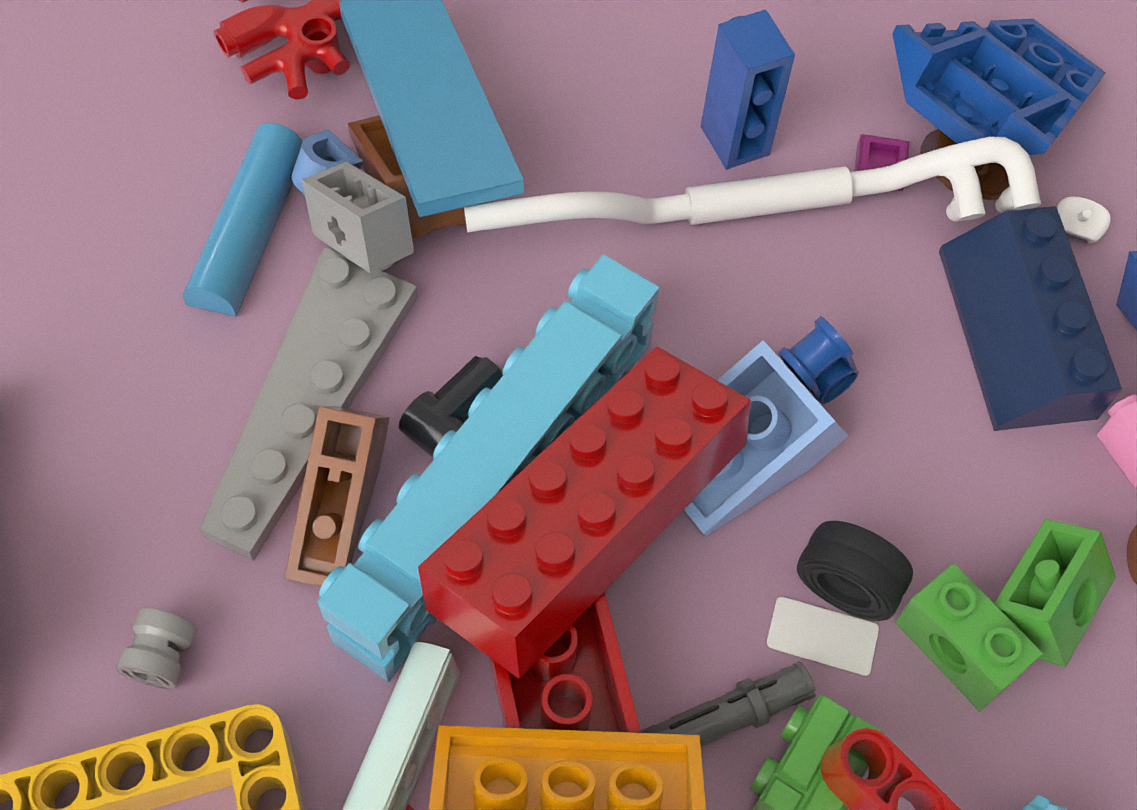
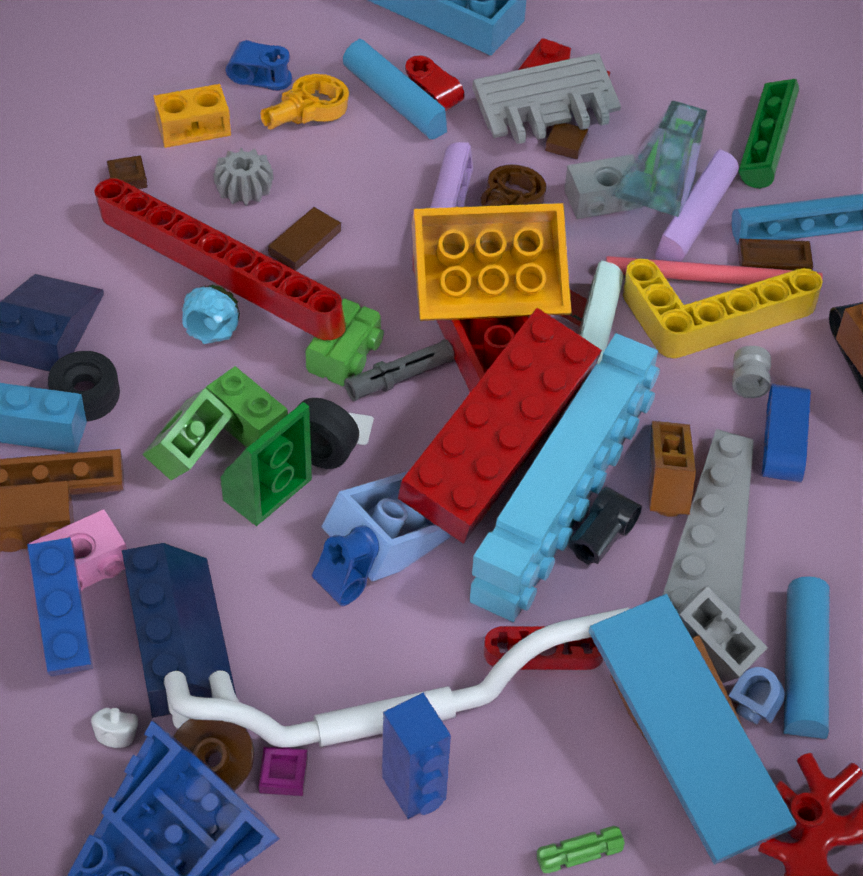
camera: 175 degrees right, 10 degrees down
(144, 534) = (786, 433): none -> blue beam
(551, 247) = (557, 661): none -> red beam
(565, 54) = (580, 849): none -> bright green axle
(943, 497) = (270, 468): none -> green slope

